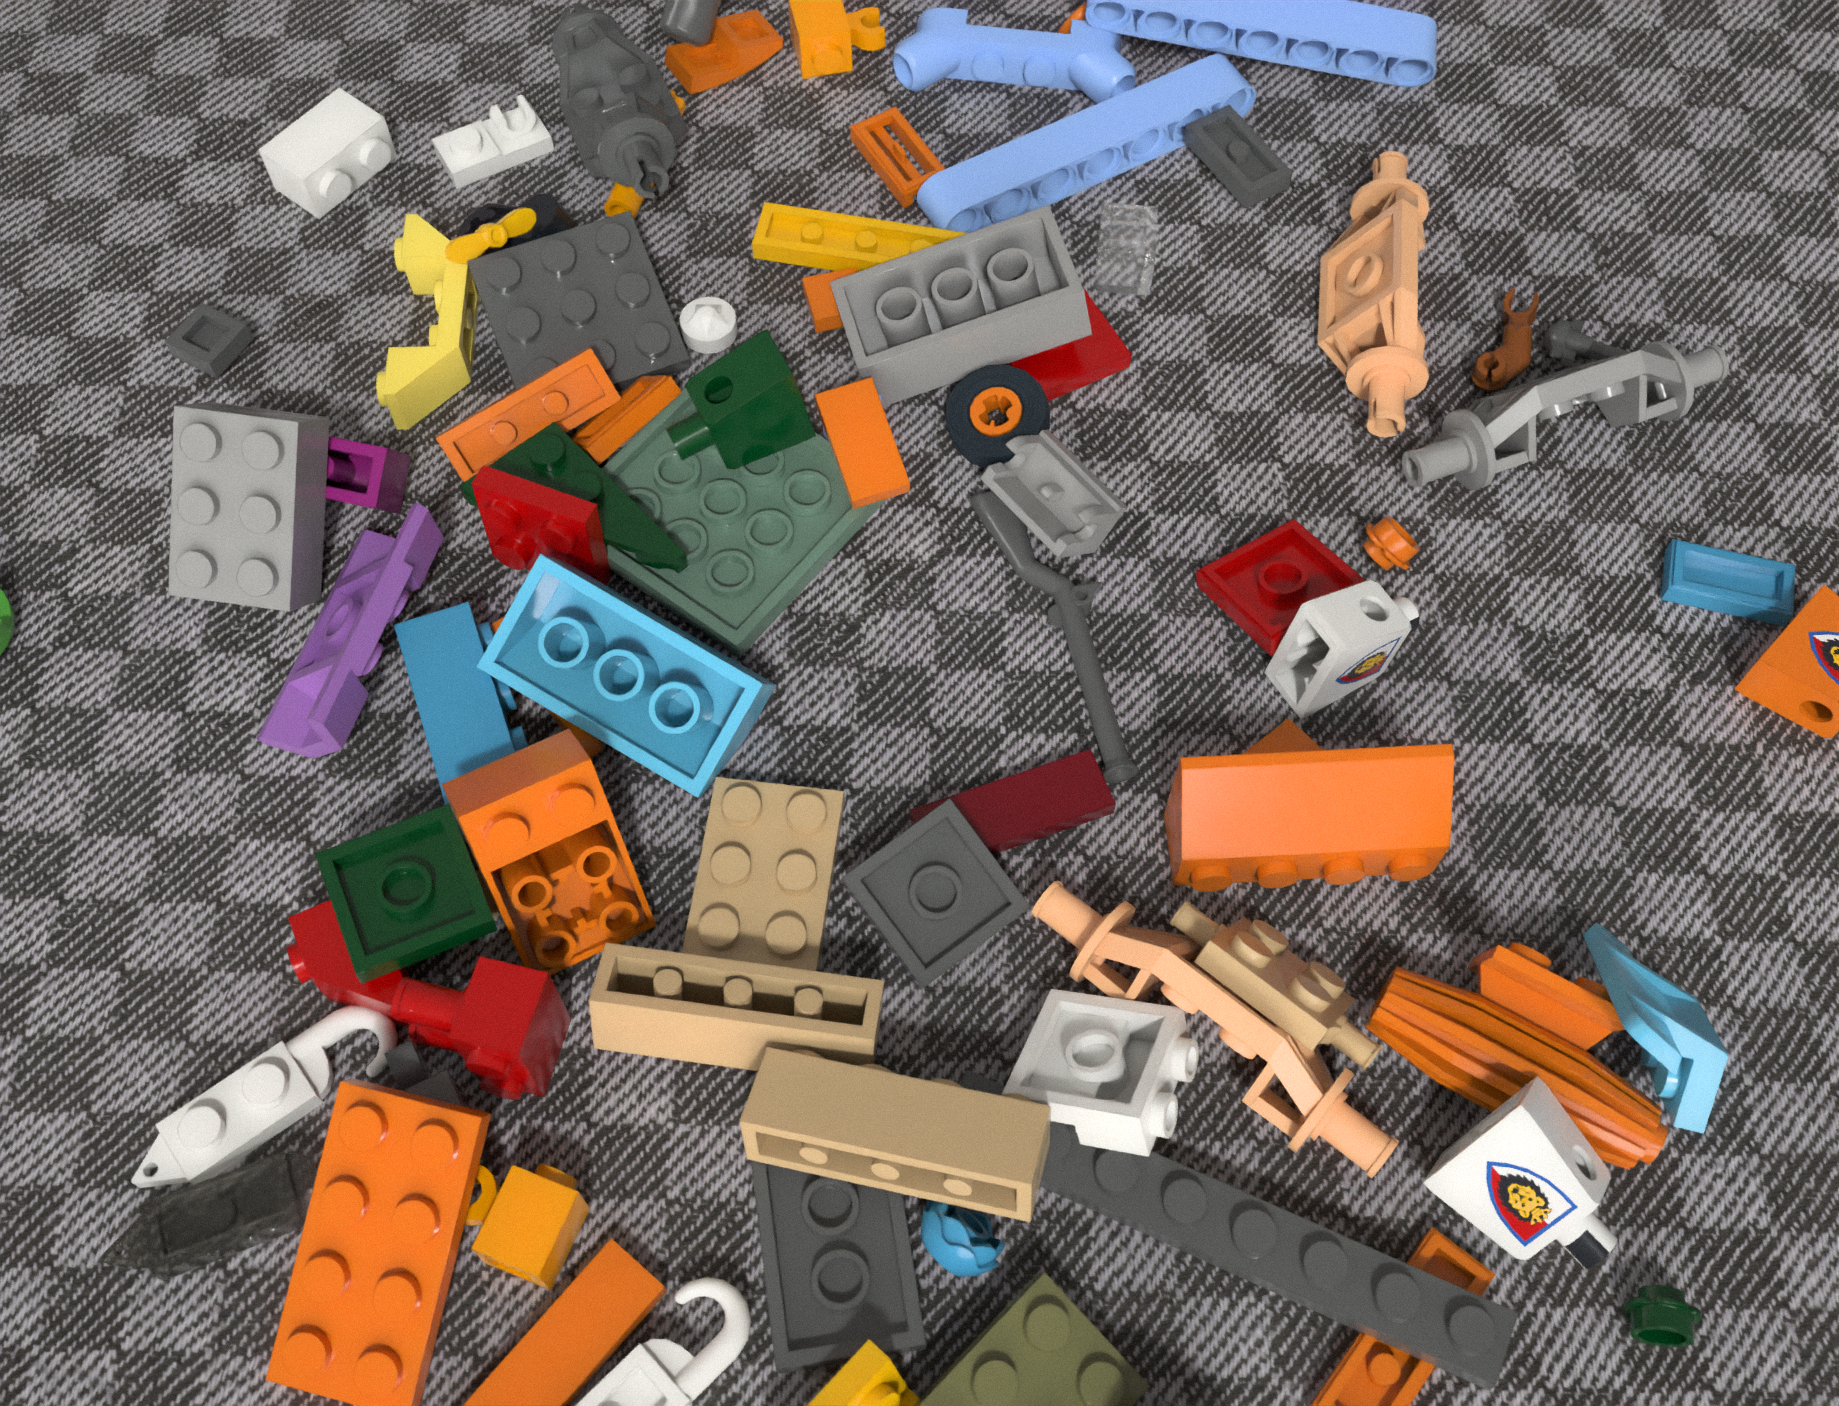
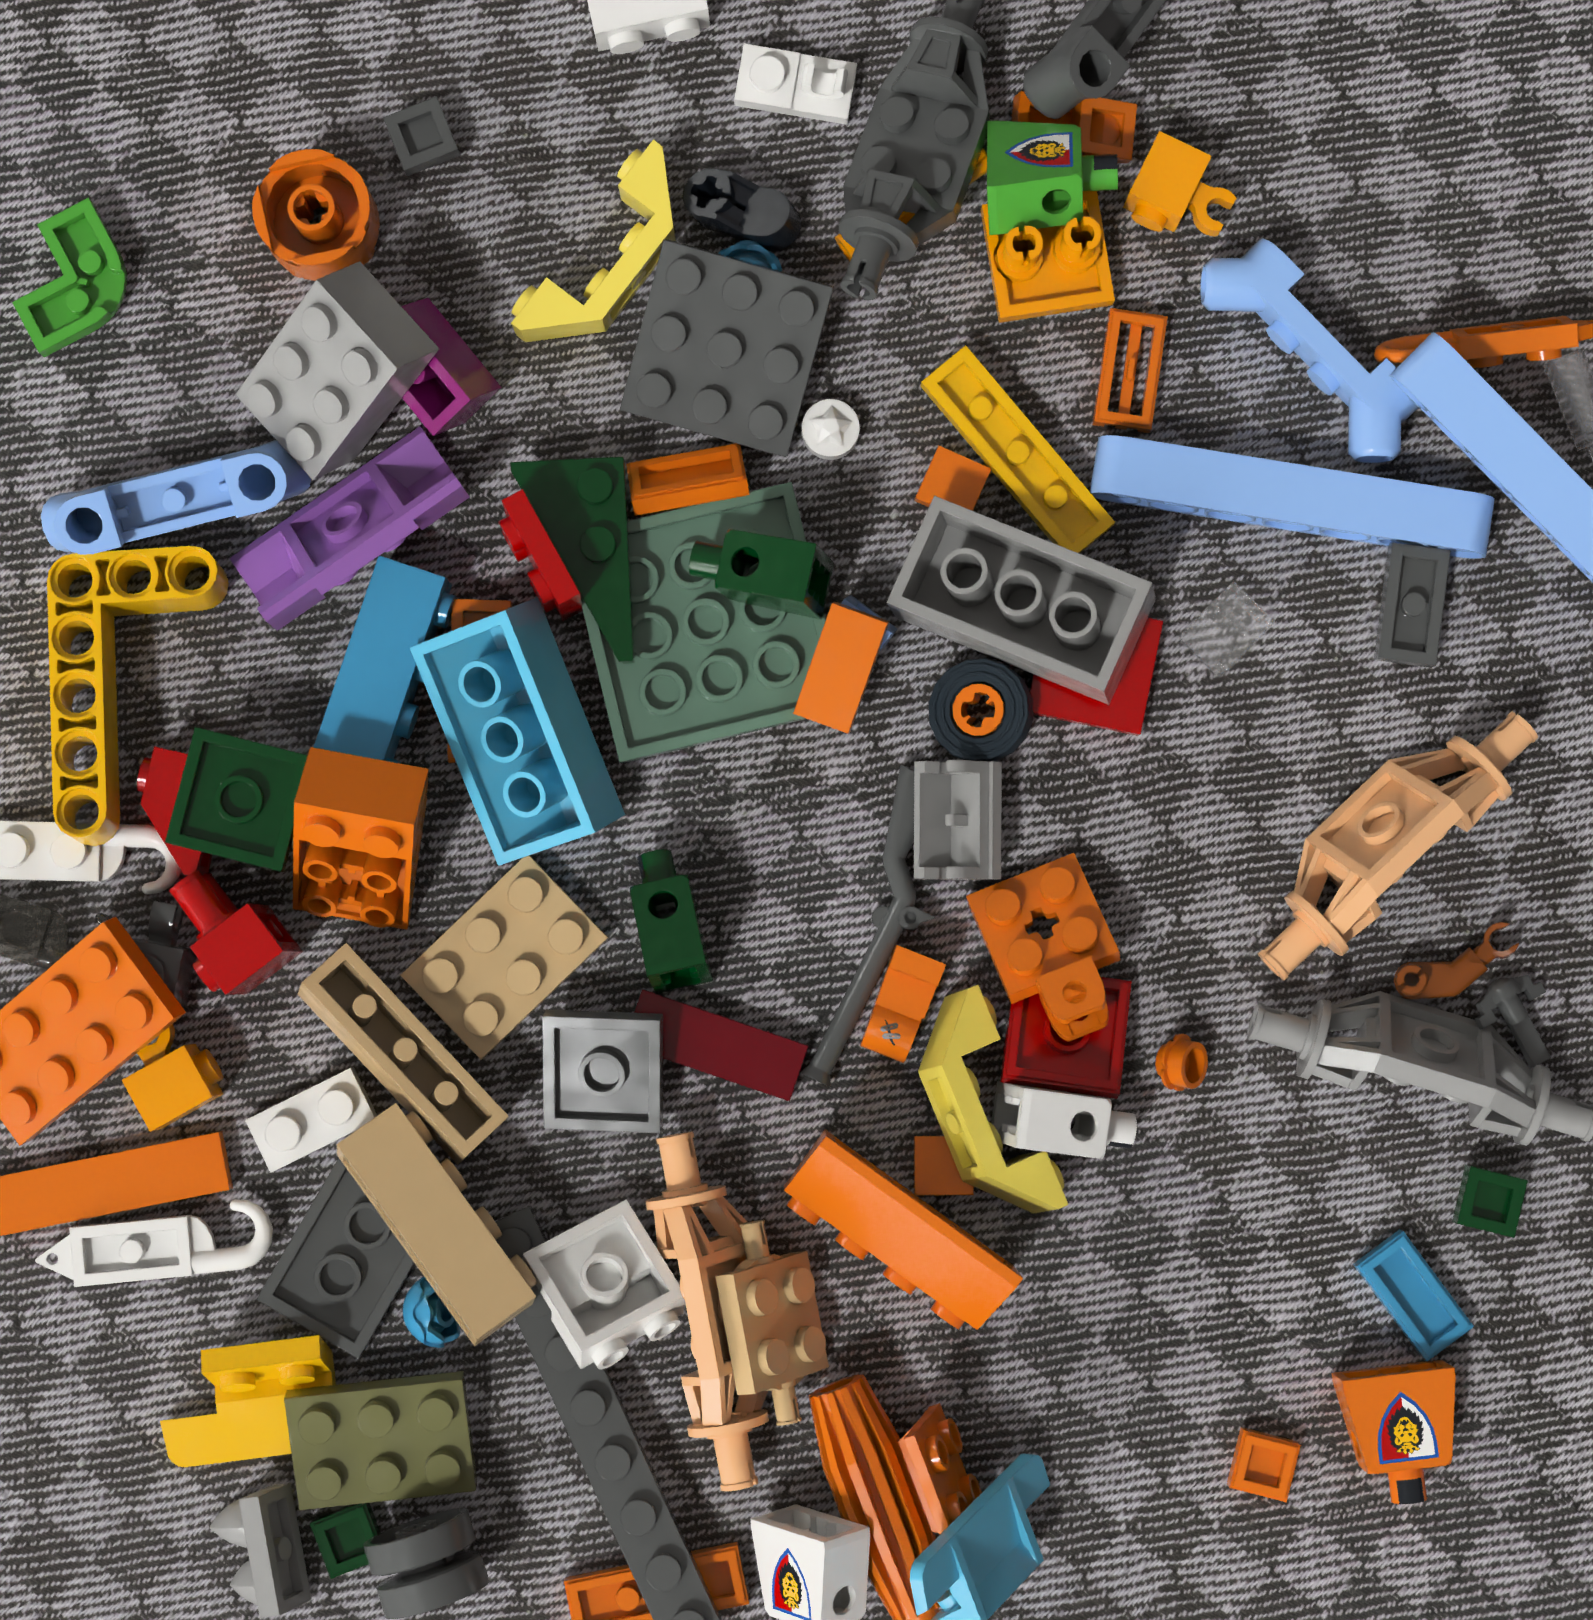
camera: 40 degrees right, 25 degrees up
(116, 755) = (172, 499): none -> light blue plate
(132, 427) = (286, 205): none -> orange brick
(135, 853) = (97, 666): none -> yellow beam
(490, 235) = (702, 221): yellow piece -> none
(561, 395) = (612, 427): orange plate -> none
(693, 1161) = (311, 1119): none -> white plate
(726, 63) = (1040, 174): none -> bright green torso
(775, 119) = (1050, 266): none -> light orange plate
(895, 733) = (673, 945): none -> dark green torso
(1133, 655) = (901, 1003): none -> orange leg
(1234, 528) = (1056, 967): none -> orange plate
(1274, 695) = (962, 1026): none -> light yellow slope
(1706, 471) = (1489, 1201): none -> dark green plate
(1766, 793) = (1263, 1464): none -> orange tile

